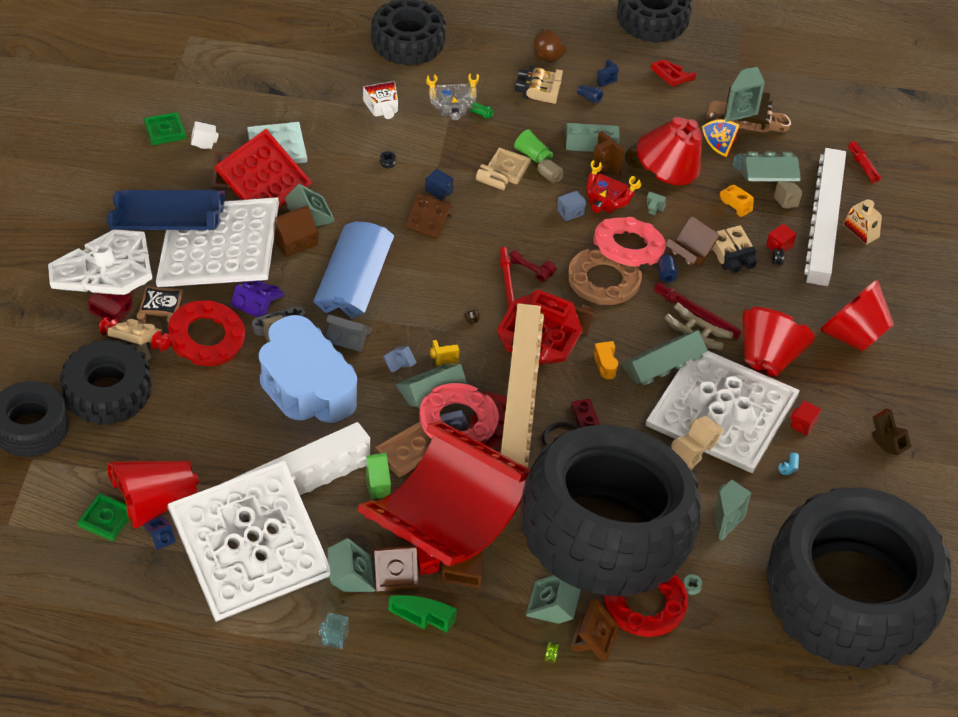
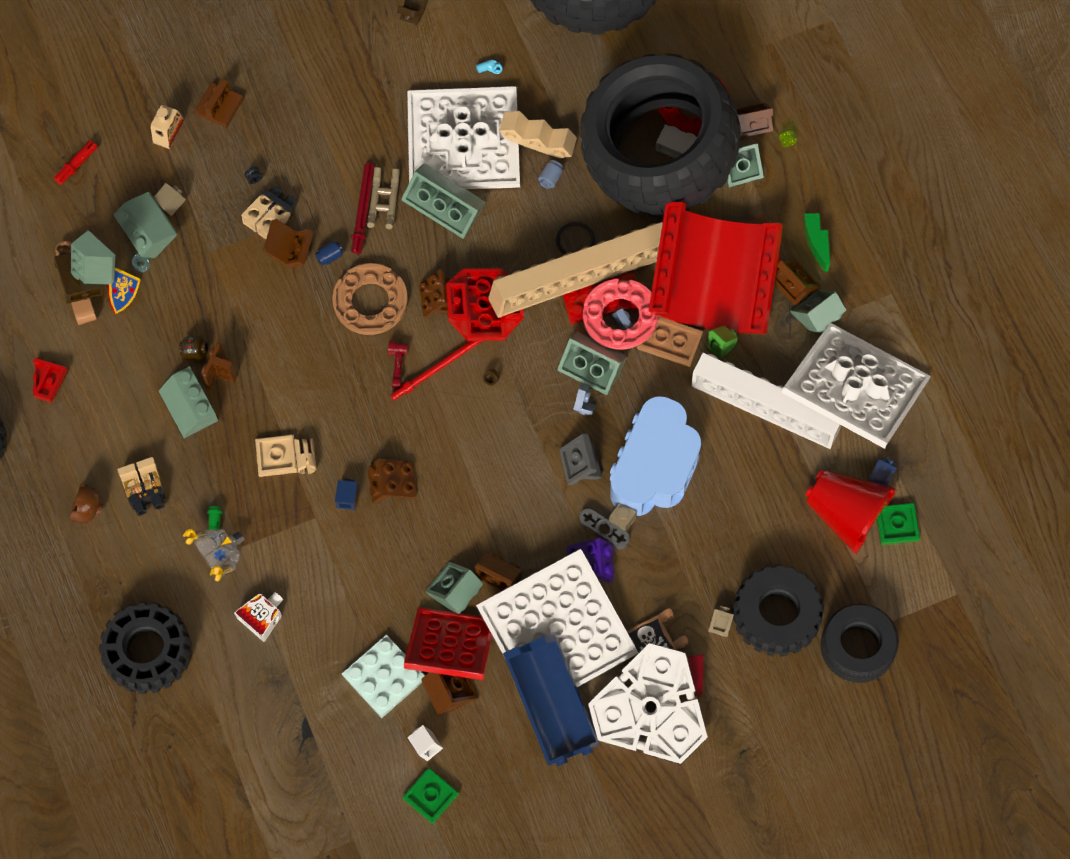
camera: 115 degrees left, 20 degrees up
(135, 332) = (708, 627): tan plate -> none
(200, 354) = (658, 598): red plate -> none
(334, 630) = (882, 286): clear light blue brick -> none
(354, 268) = (504, 500): medium blue cylinder -> none
(388, 159) = (334, 558): black bush -> none
(444, 354) = (551, 369): yellow bracket -> none
(532, 147) = (243, 440): bright green plant -> none
(550, 170) = (263, 411): dark tan brick -> none
(571, 205) = (300, 368): sand blue brick -> none
(584, 413) = (544, 231): dark red hinge -> none
(593, 94) = (126, 435): dark blue cone -> none
(605, 359) = (471, 248): light orange leg -> none
(608, 74) = (87, 432): dark blue bracket -> none
(608, 193) = (263, 346): red torso -> none
(632, 257) = (325, 319): coral plate -> none
(655, 202) = (250, 302): sand green tile -> none
(672, 151) = (180, 313): red cone -> none
(730, 507) = (576, 79): sand green slope -> none
(737, 199) = (199, 239): light orange leg -> none
(773, 339) = (376, 122): red cone -> none
(781, 238) = (230, 182): red brick -> none
(805, 417) = (434, 75): red brick -> none
(826, 217) = (173, 160): white brick -> none
(861, 319) = (303, 74): red cone -> none
(866, 266) = (219, 103): none -> reddish brown bracket

